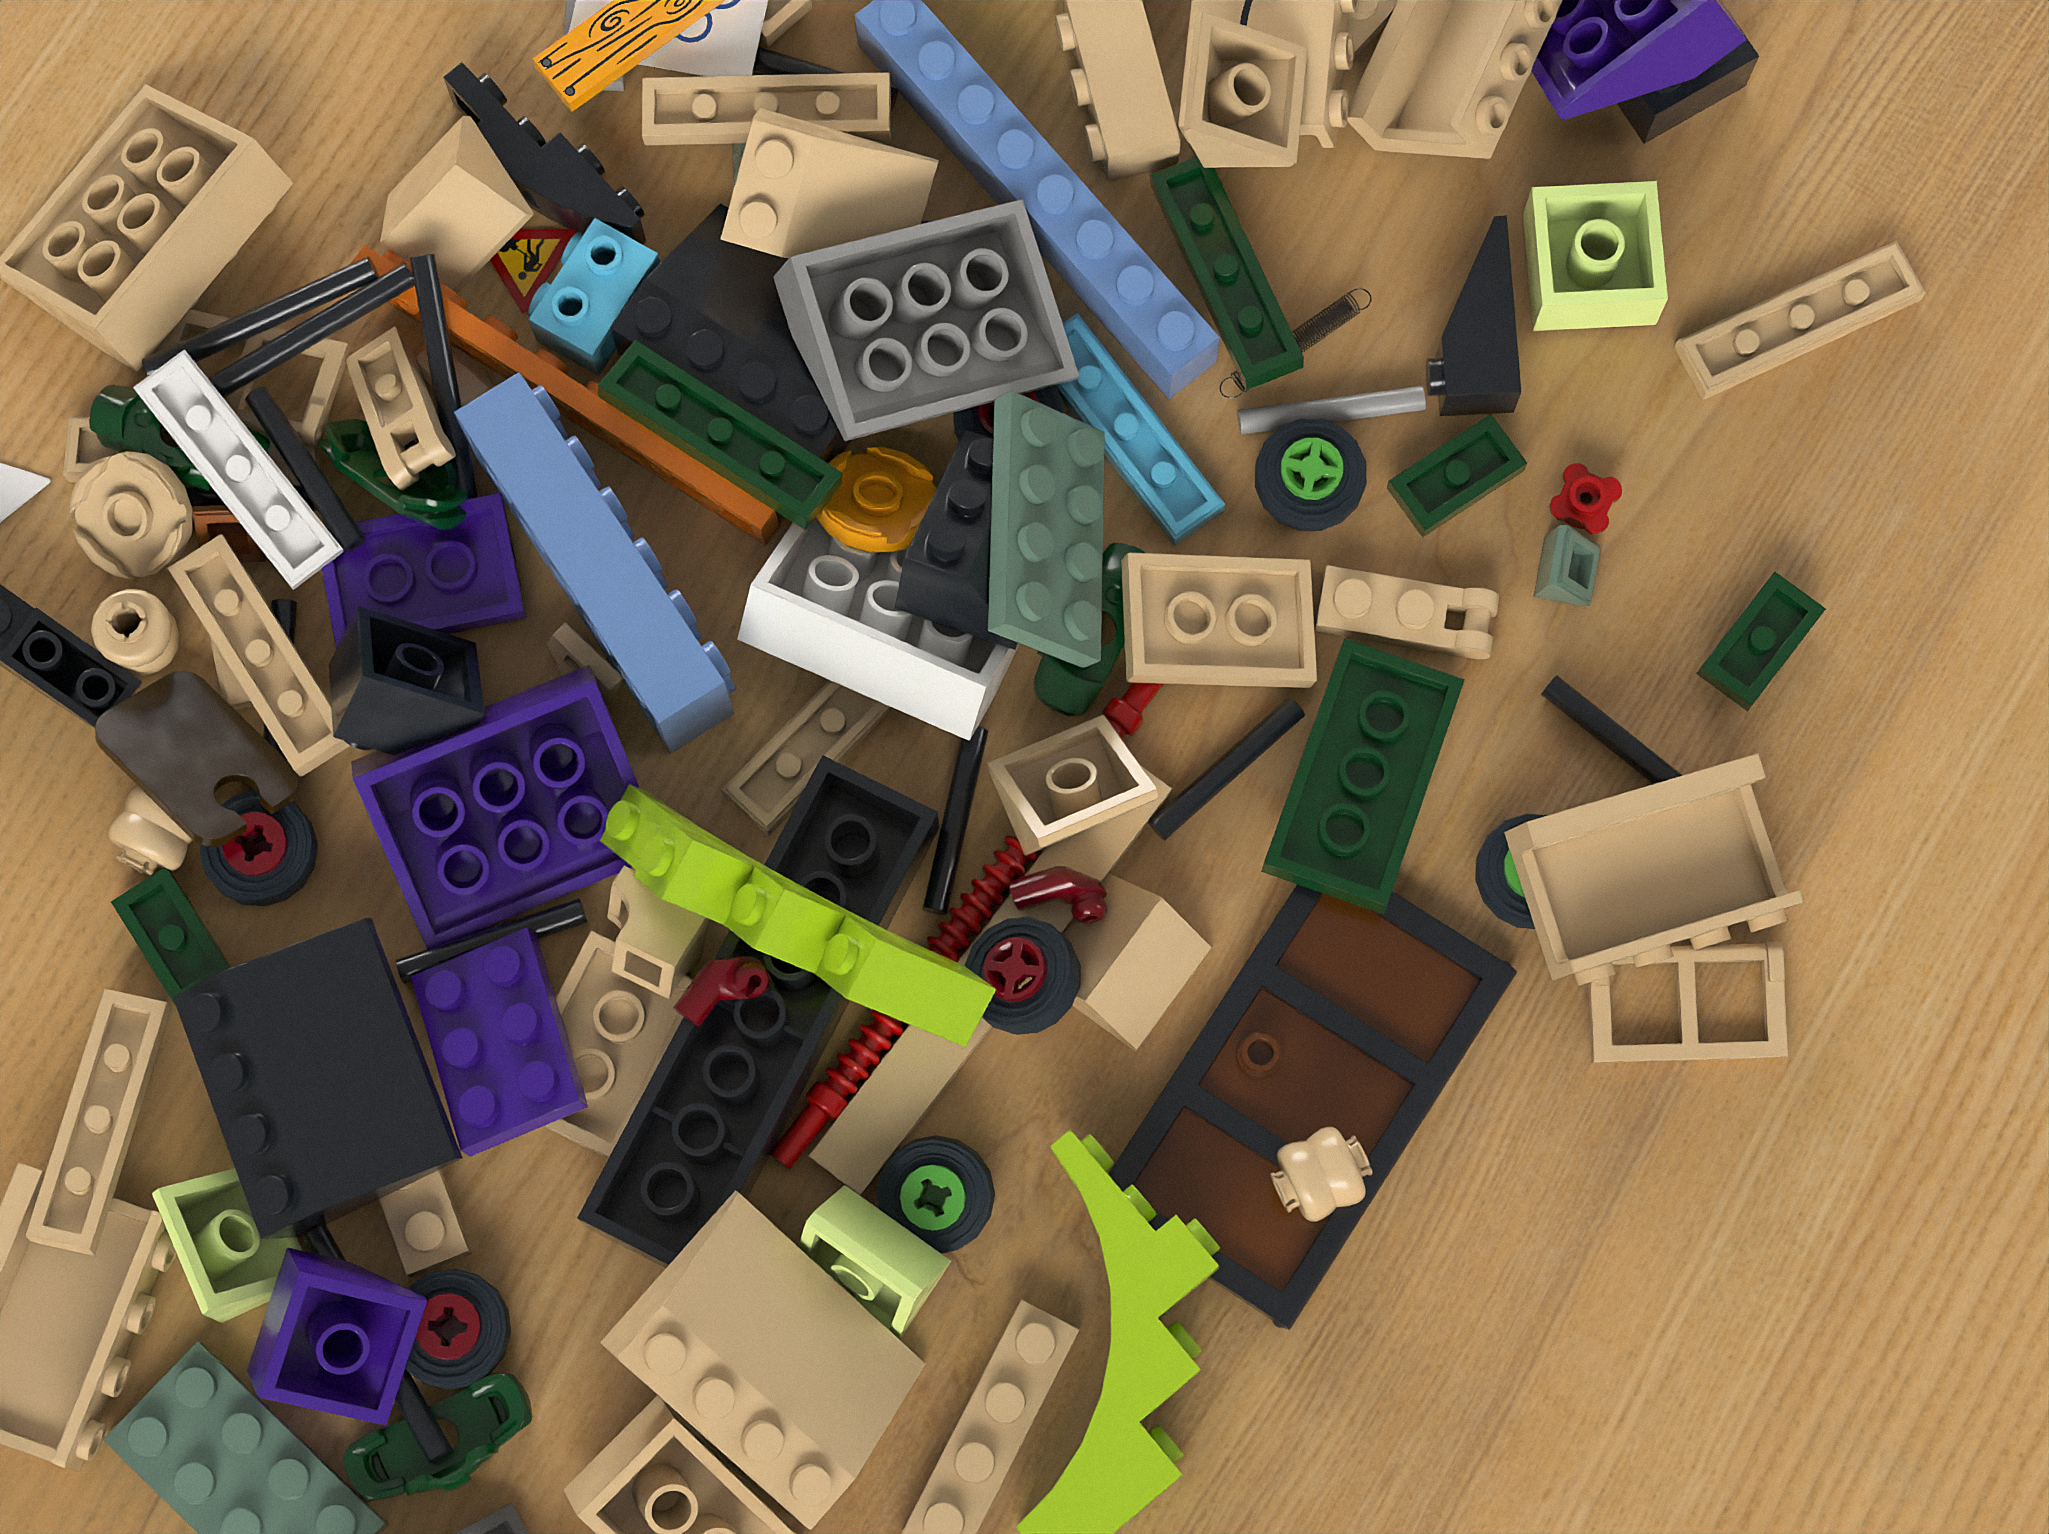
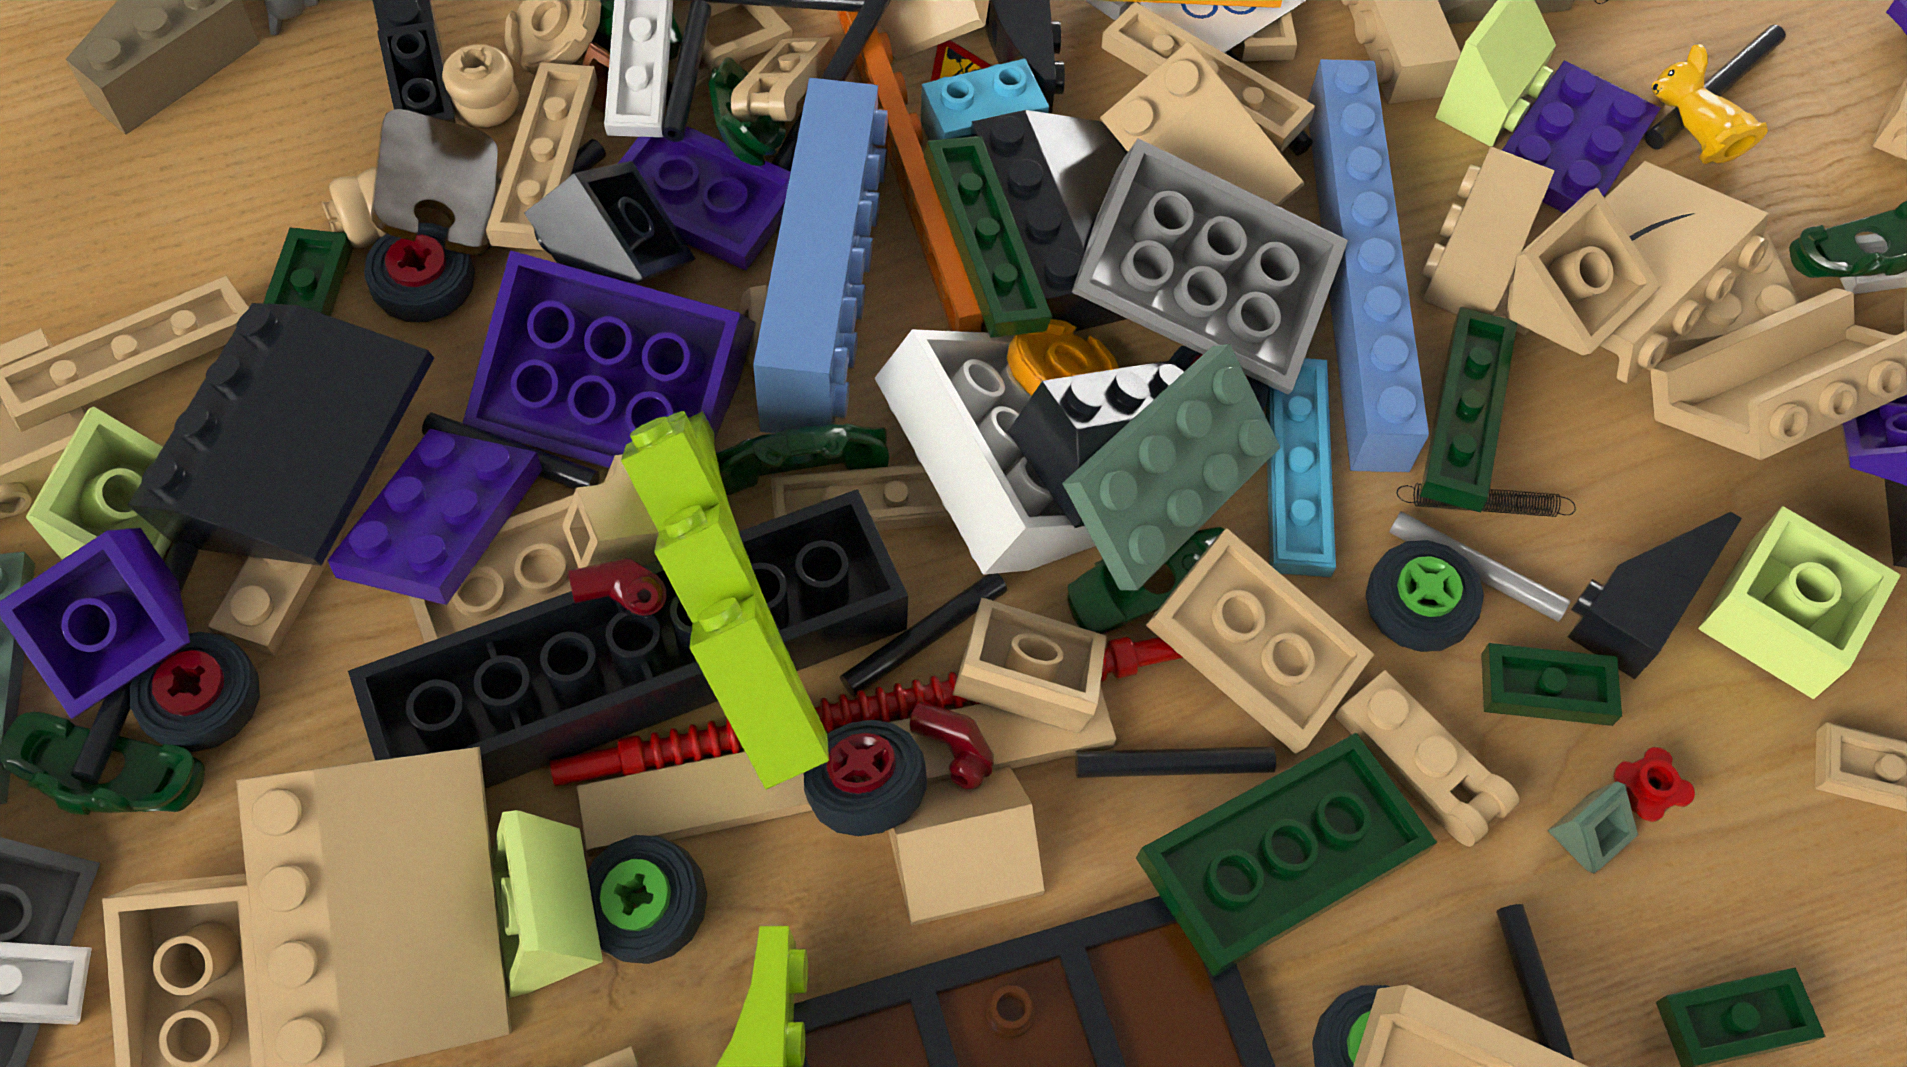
camera: 35 degrees right, 15 degrees down
(737, 746) = (819, 446): none -> dark green piece

